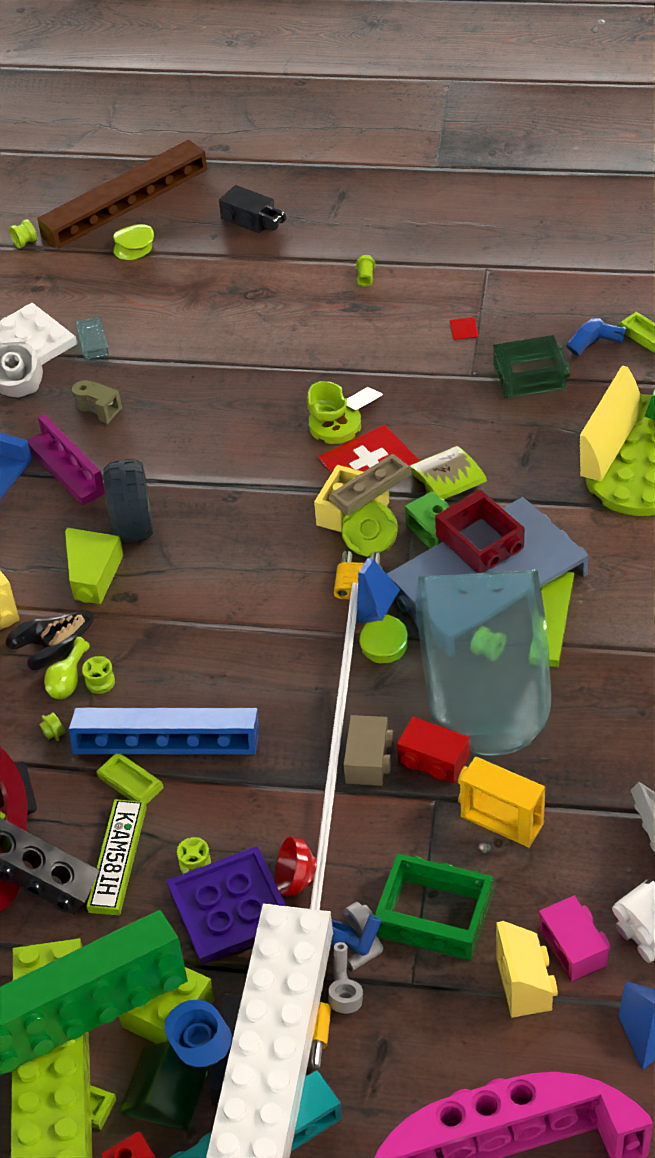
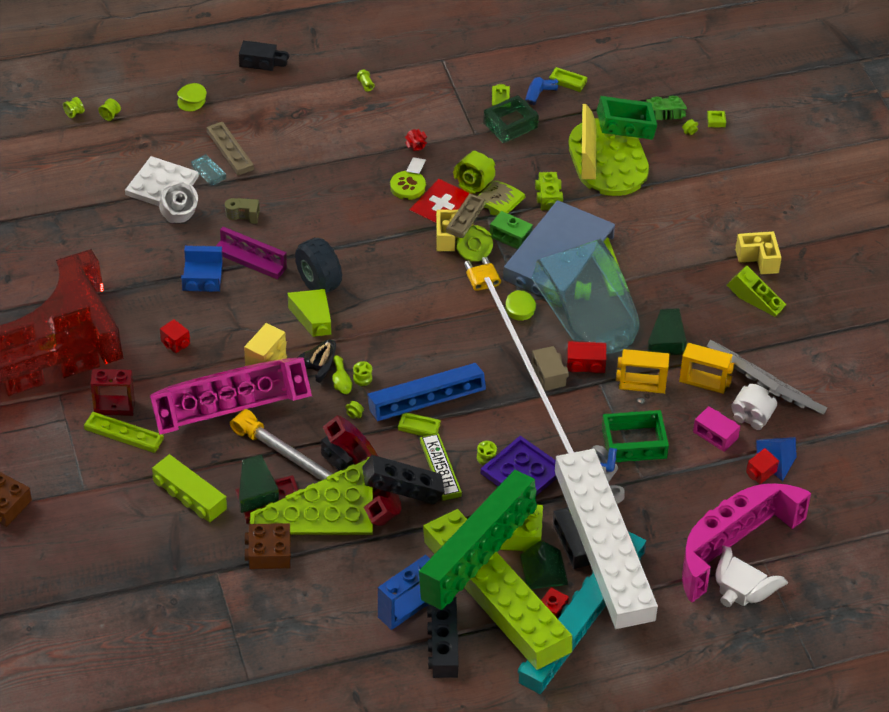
camera: 30 degrees left, 0 degrees up
(122, 194) = (161, 64): reddish brown brick -> none
(134, 316) = (230, 148): none -> dark tan plate
(198, 1033) = (558, 530): blue piece -> none
(294, 867) = (544, 435): red piece -> none
(326, 401) = (401, 173): lime hair -> none
(375, 592) = (506, 280): blue slope -> none
(379, 363) = (416, 140): none -> red gear
(429, 426) = (474, 172): none -> lime brick
(464, 328) = (451, 104): red sticker -> none
(470, 510) = (554, 216): dark red window -> none
(524, 478) = (548, 188): none -> lime brick
(524, 970) = (700, 452): light yellow slope -> none
(533, 327) = (500, 93): none -> lime bracket
(578, 751) = (668, 333): none -> clear green slope
(605, 828) = (710, 358): none -> yellow window
(610, 1033) = (762, 466): none -> red brick

